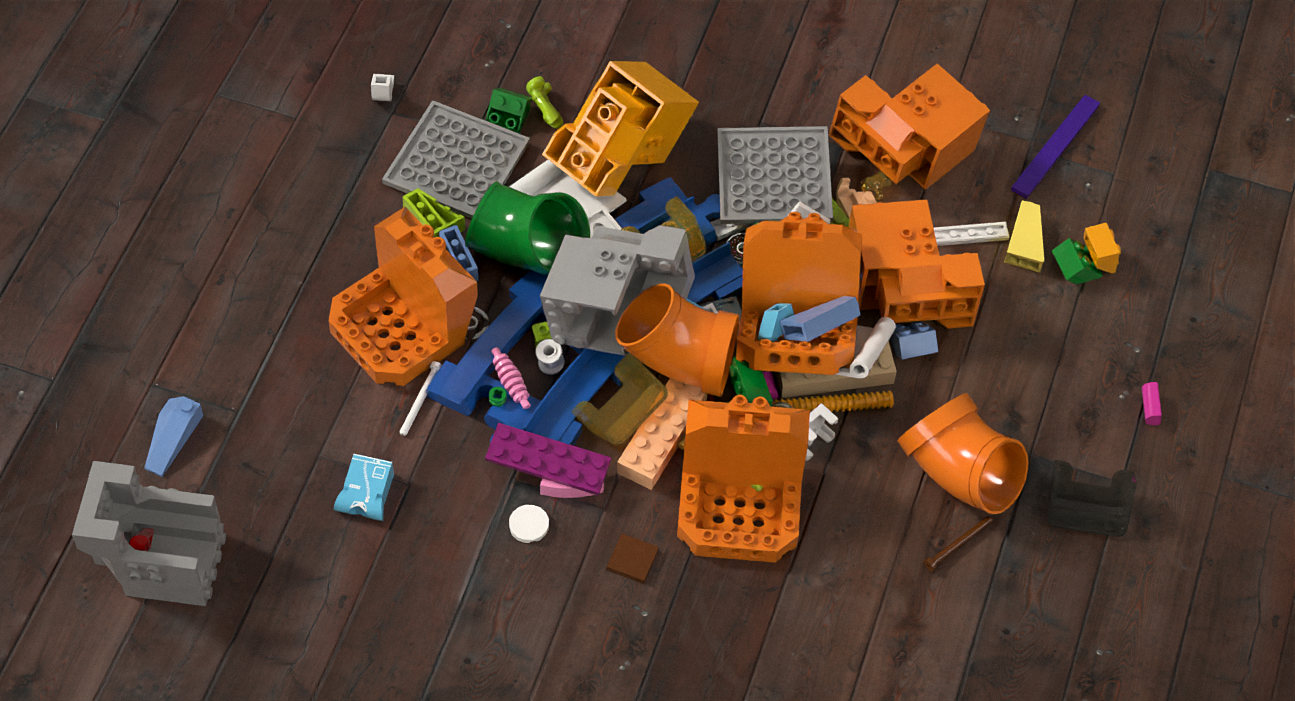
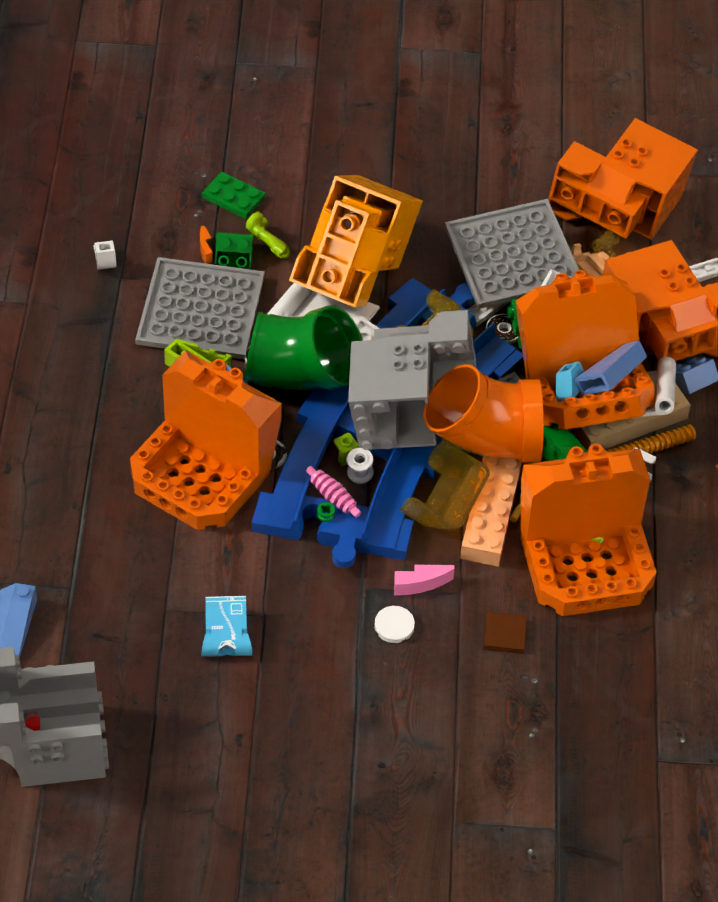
camera: 15 degrees left, 5 degrees down
(435, 367) = (251, 502): white bar -> none
(482, 98) = (206, 246): none -> orange slope
(529, 52) = (233, 195): none -> green plate
(548, 459) = (395, 558): magenta plate -> none

